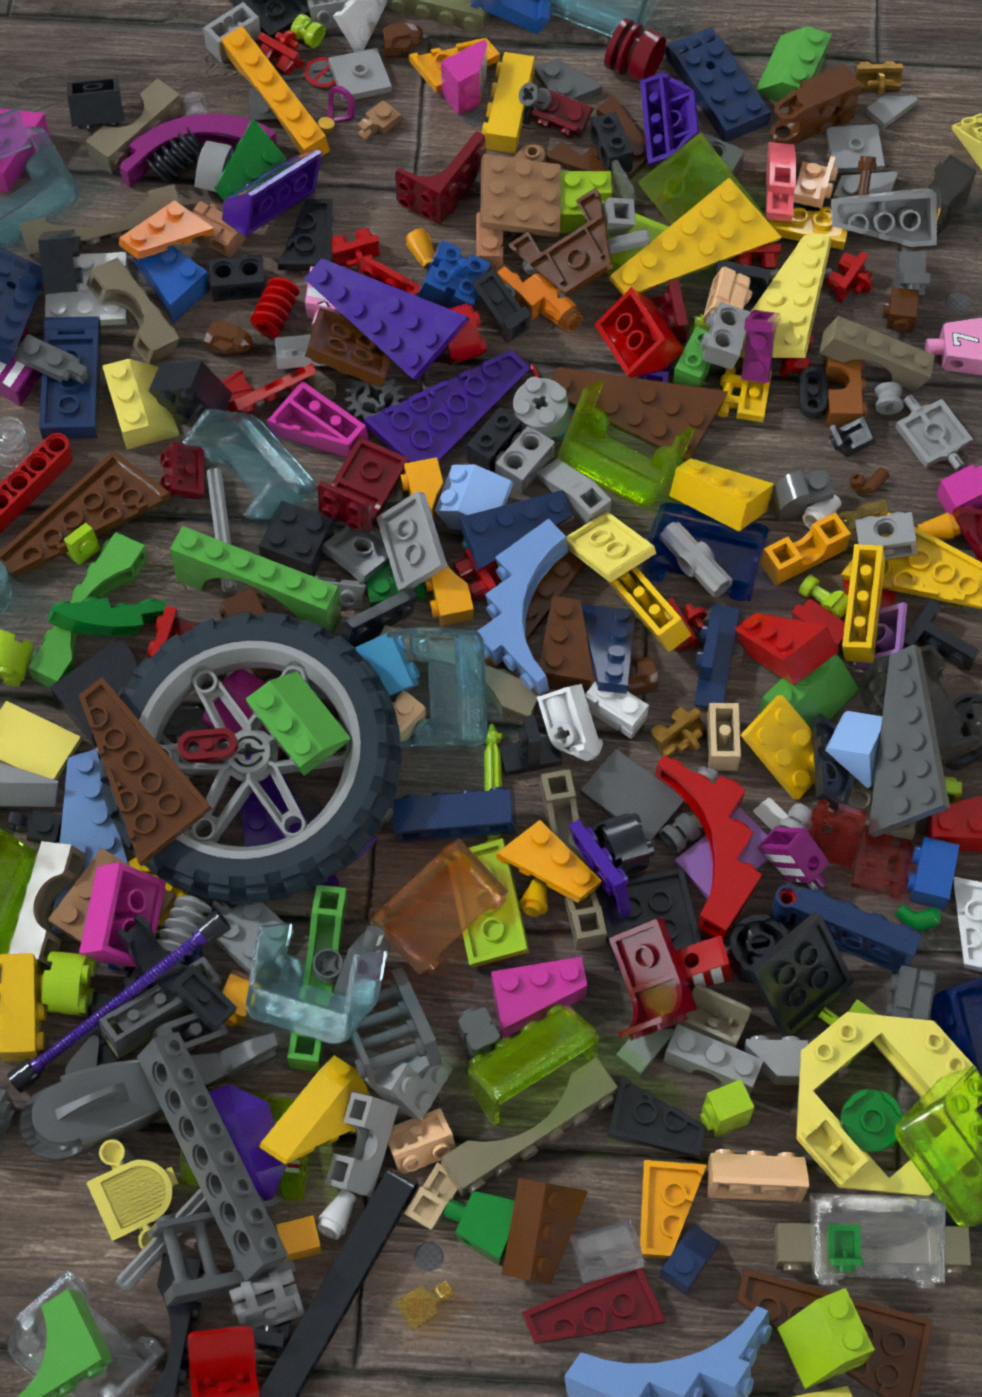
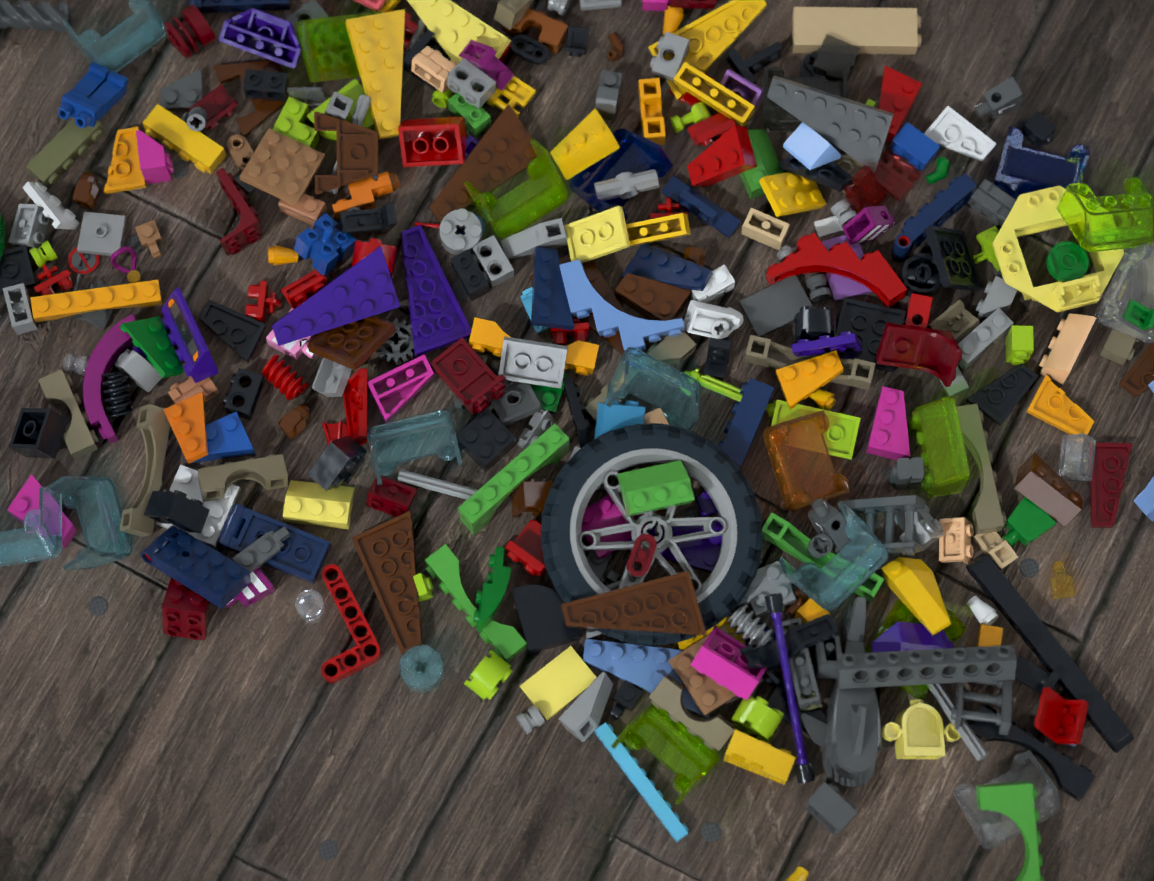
camera: 65 degrees left, 10 degrees up
(270, 1308) = (1027, 674): light grey plate -> none
(373, 1125) = (961, 585): light grey arch -> none
(470, 491) = (510, 307): light blue slope -> none
(673, 310) = (422, 108): dark red bracket -> none
(681, 735) = (743, 247): pearl gold hips -> none
(689, 1259) = (1101, 411): dark blue slope -> none
(820, 510) = (628, 91): white cone -> none
(876, 509) = (643, 60): clear yellow plate -> none

